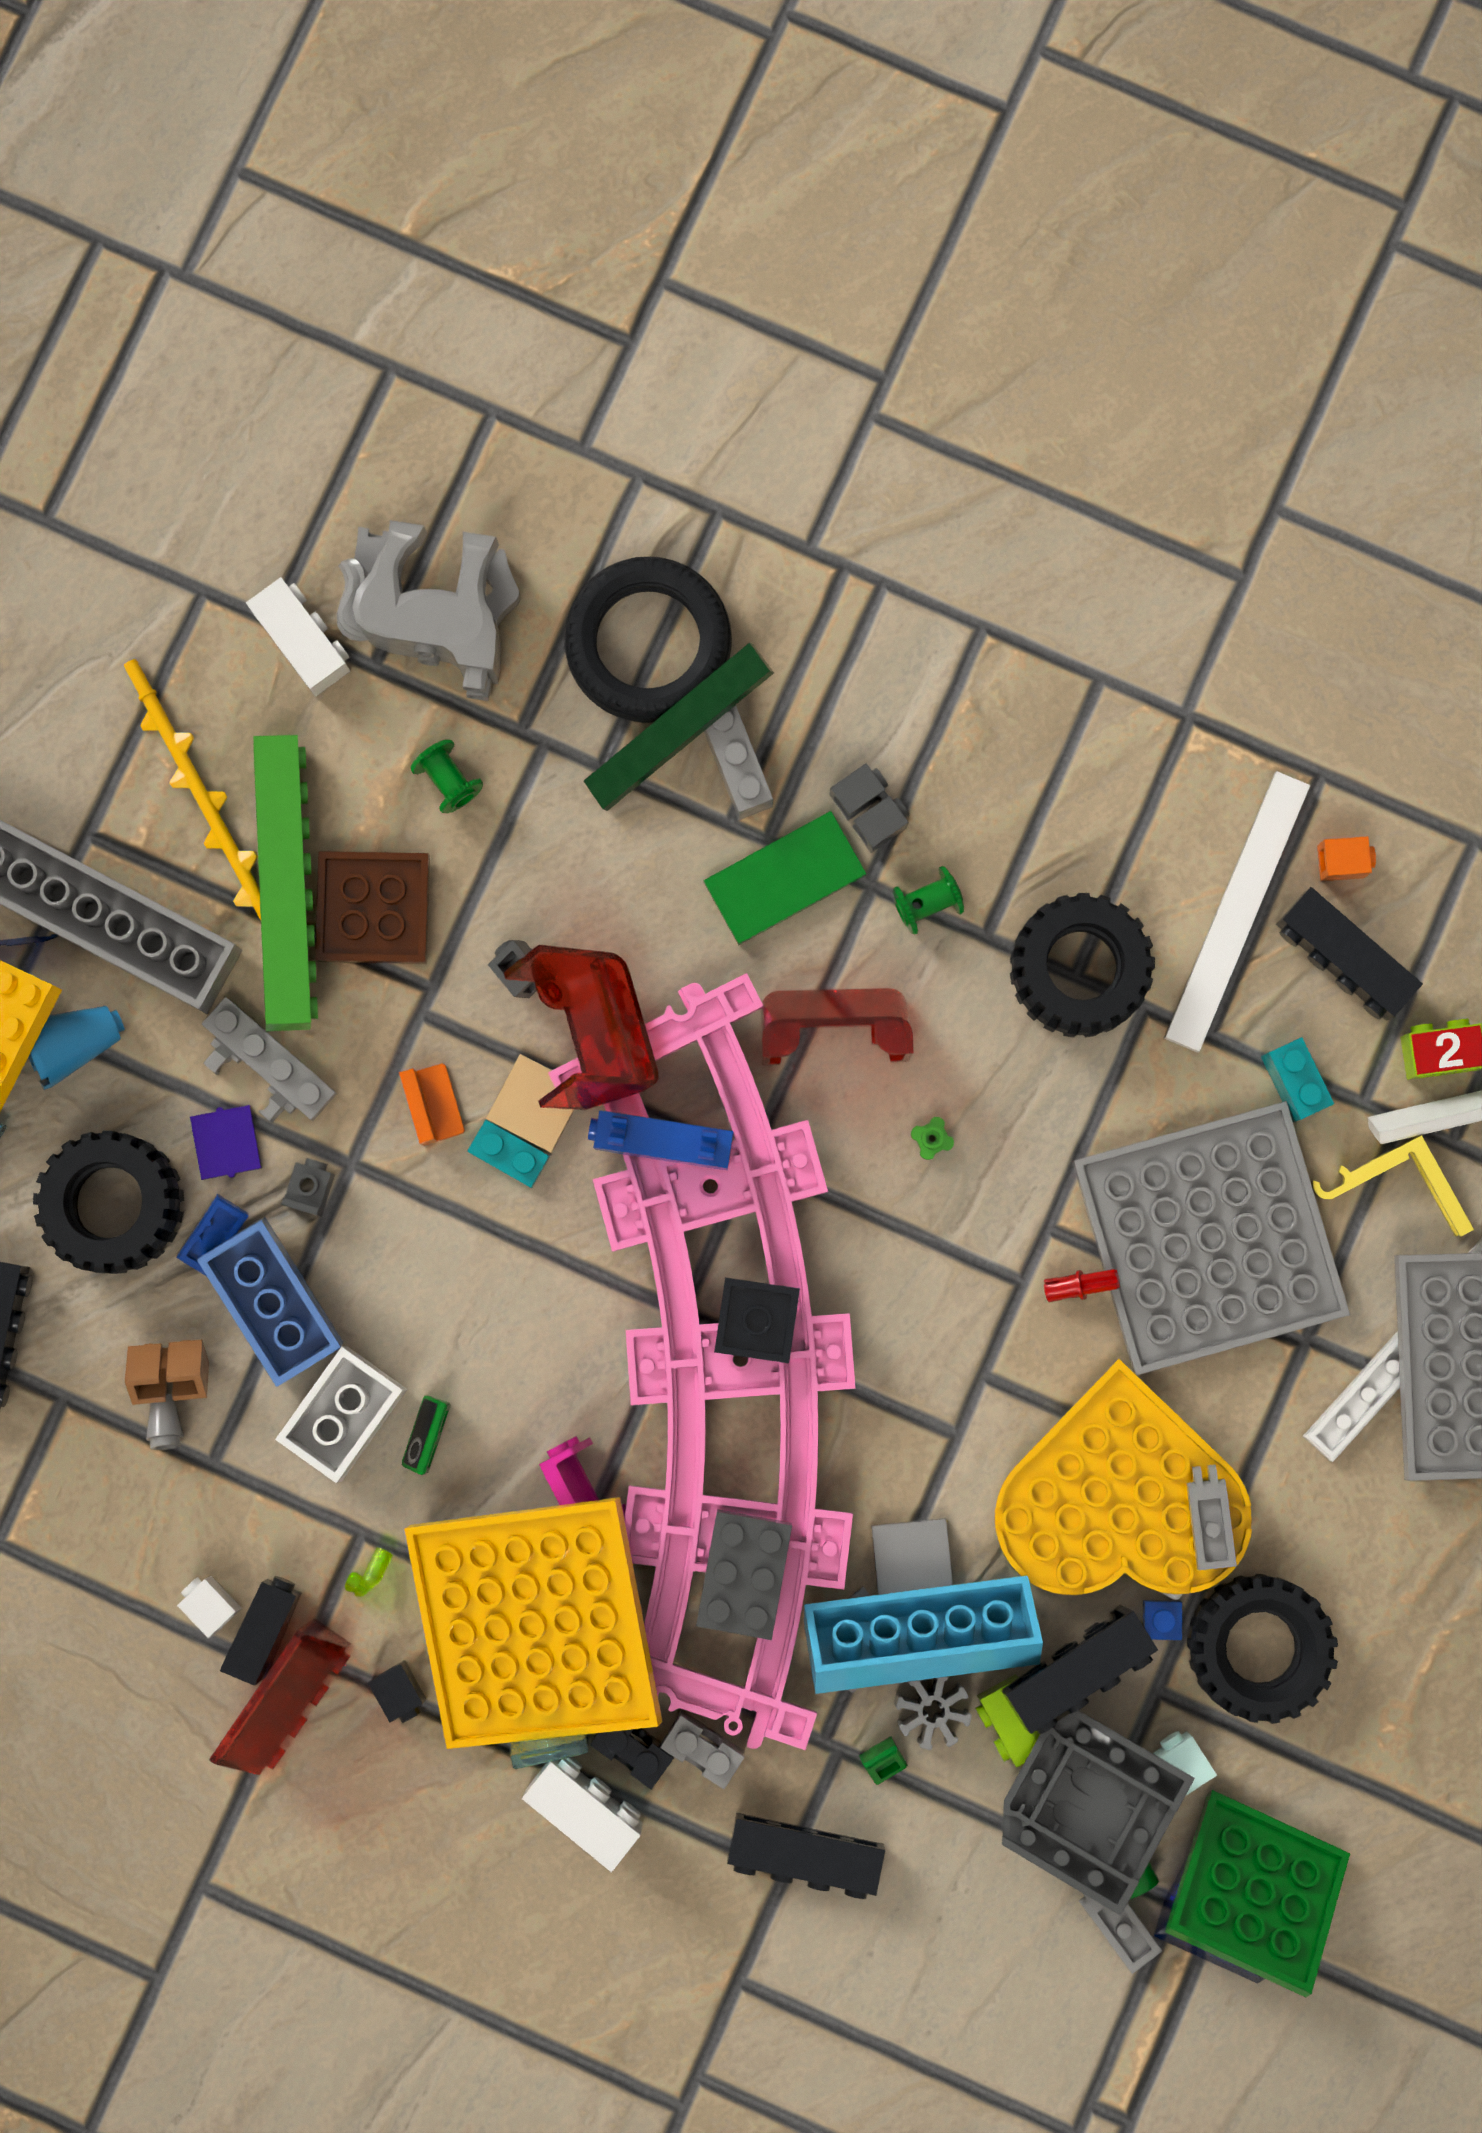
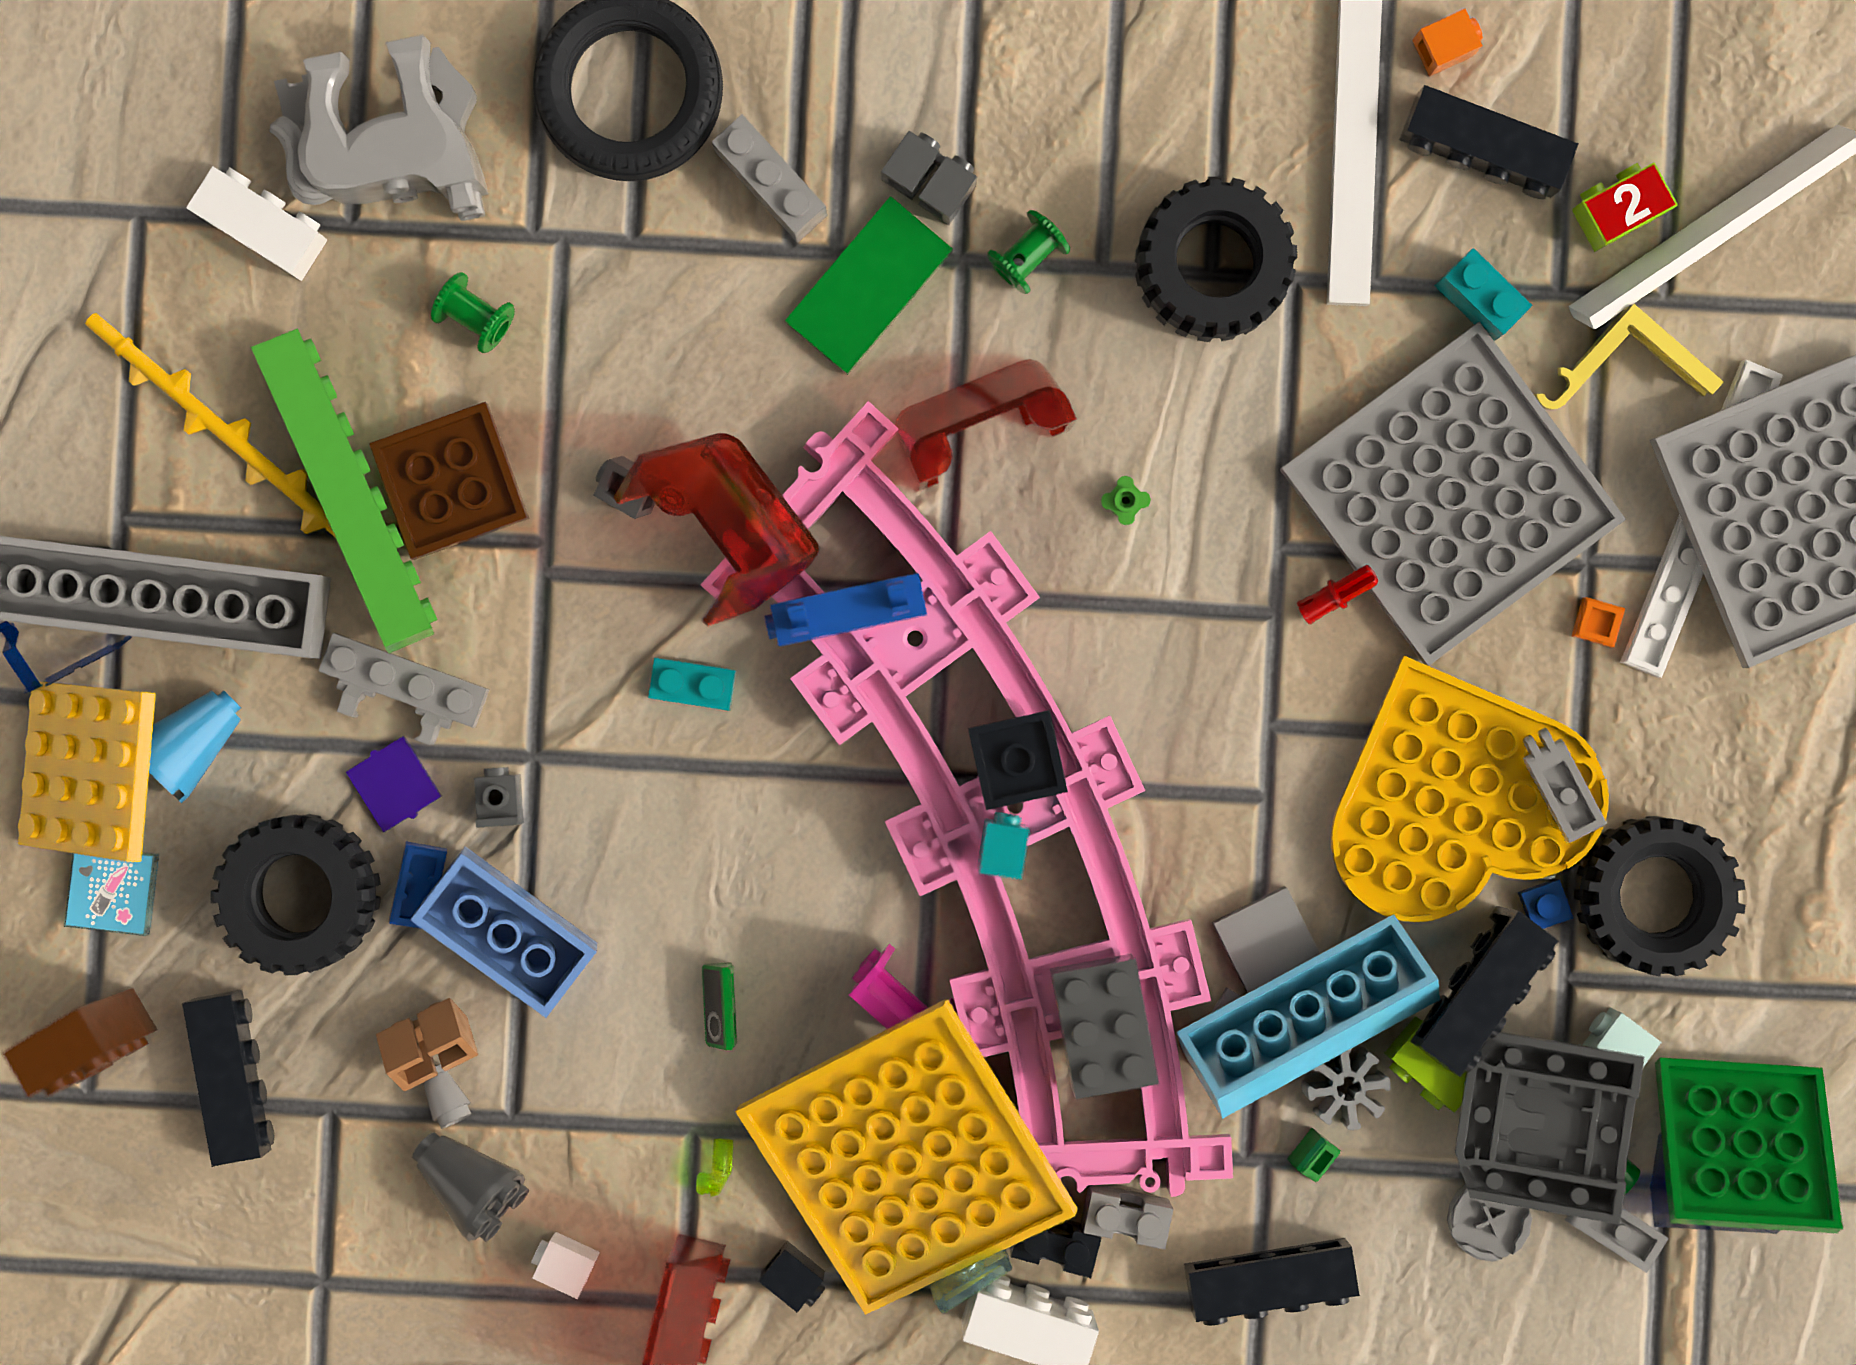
camera: 20 degrees left, 5 degrees up
(155, 1506) = (469, 1185): none -> dark grey cone
(262, 1631) = (629, 1271): black slope -> none
(341, 1414) = (624, 1019): white brick -> none
(432, 1104) = (592, 662): orange panel -> none
(519, 1110) = (683, 632): tan tile -> none
(678, 726) = (697, 165): dark green tile -> none
(716, 1387) = (1003, 846): none -> teal brick
(1010, 1880) = (1486, 1227): none -> light grey tile
(1296, 1394) = (1598, 622): none -> orange tile

